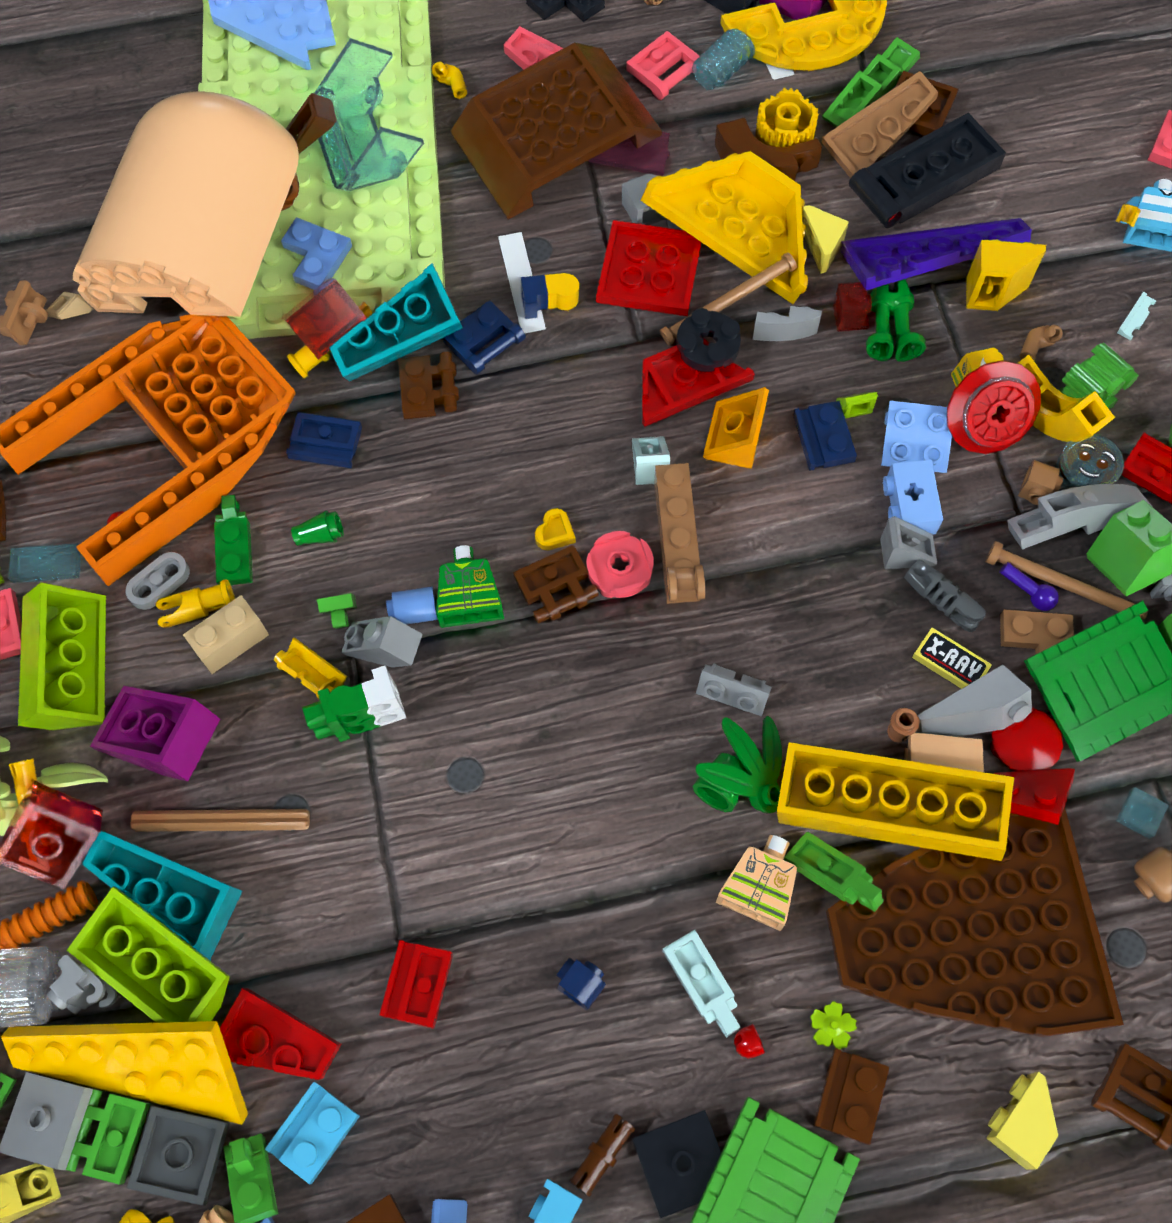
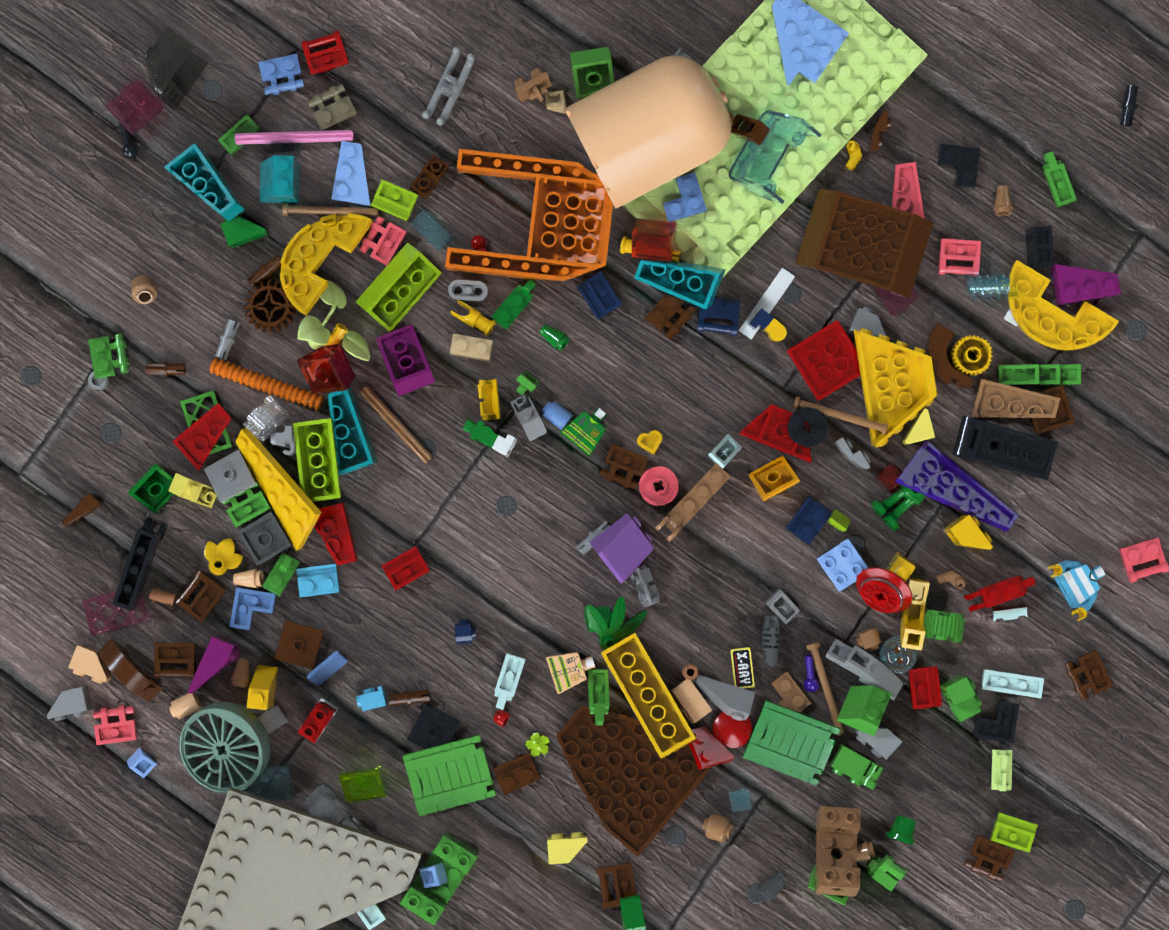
camera: 50 degrees right, 20 degrees up
(67, 236) = (591, 70): none -> bright green slope
(455, 43) = (880, 128): none -> reddish brown slope
(612, 697) = (585, 546): none -> light grey pin
(657, 666) = (623, 546): none -> medium lavender slope
(914, 494) = (818, 582): light blue brick -> none
(1103, 297) = (1000, 592): none -> red hinge

